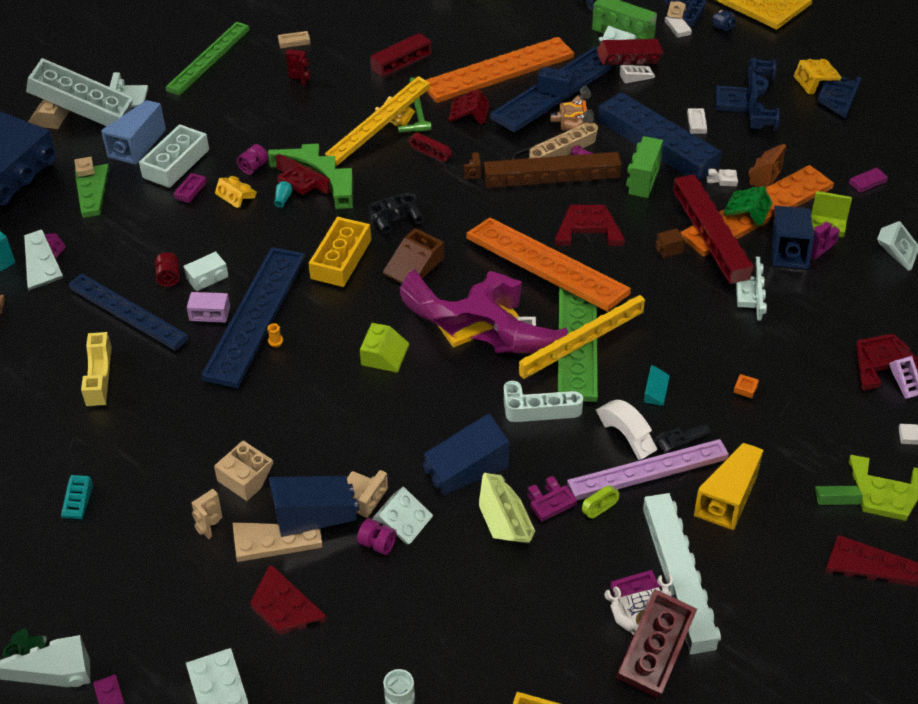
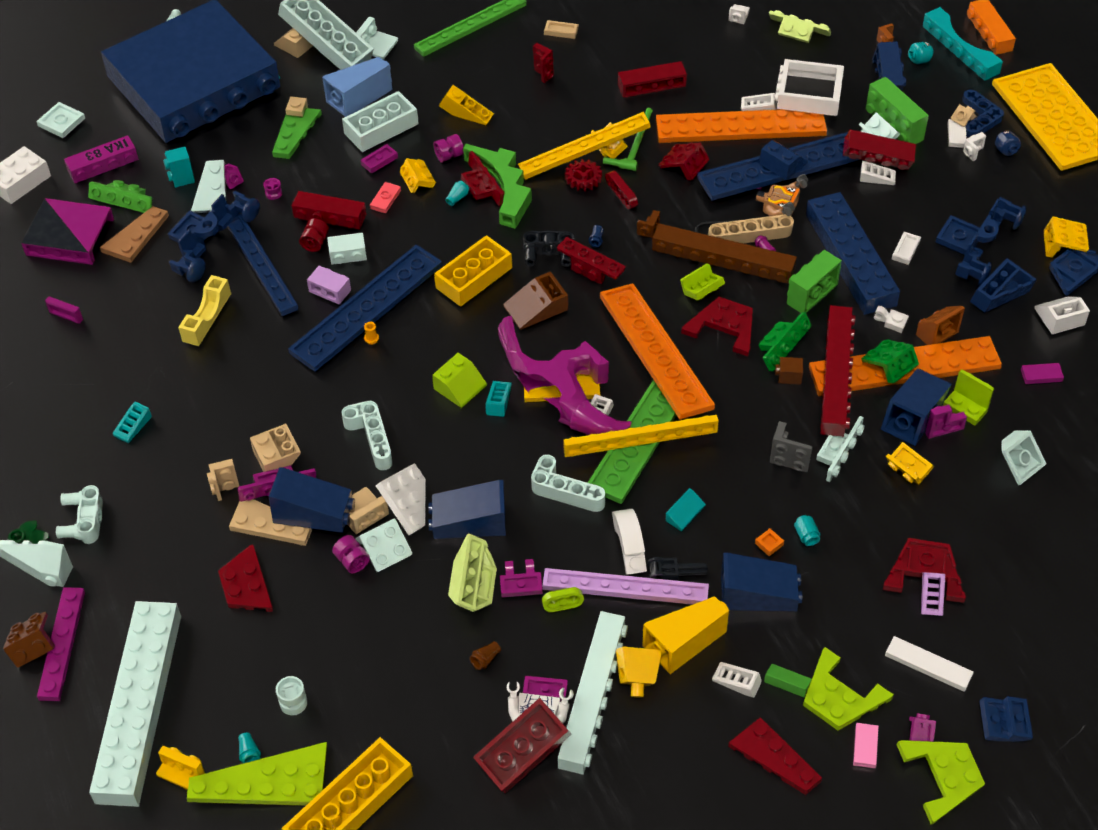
camera: 25 degrees right, 5 degrees up
(42, 303) = (194, 229): none -> dark blue piece
(82, 601) = (88, 515): none -> light aqua piece
(100, 243) = (272, 188): none -> magenta wheel
(176, 241) = (329, 209): none -> dark red brick
(215, 218) = (385, 197): none -> coral plate
(243, 122) = (463, 106): none -> yellow slope
(253, 503) = (263, 484): none -> magenta bracket
(319, 409) = (367, 416): none -> light aqua beam
(389, 145) = (583, 175): none -> dark red gear
(398, 463) = (406, 497): none -> white plate
(429, 353) = (498, 400): none -> teal slope
(432, 192) = (596, 238): none -> dark blue pin
(442, 212) = (589, 262): none -> dark red bracket
(503, 47) = (763, 101): none -> white slope
(548, 199) = (701, 282): none -> lime bracket
(550, 34) = (809, 103): none -> white window
(560, 579) = (483, 656): none -> reddish brown cone
(645, 221) = (783, 339): none -> green bracket
(698, 30) = (973, 145): none -> white bracket
(709, 533) = (638, 668): none -> yellow torso
(715, 306) = (789, 452): none -> dark grey bracket
(763, 422) = (759, 584): none -> dark blue slope
(771, 364) = (807, 530): none -> teal brick
(796, 123) = (1002, 286): none -> dark blue wedge
(800, 503) = (749, 685): none -> white slope
(816, 282) = (910, 463): none -> yellow bracket
(855, 129) = (1063, 314): none -> white slope

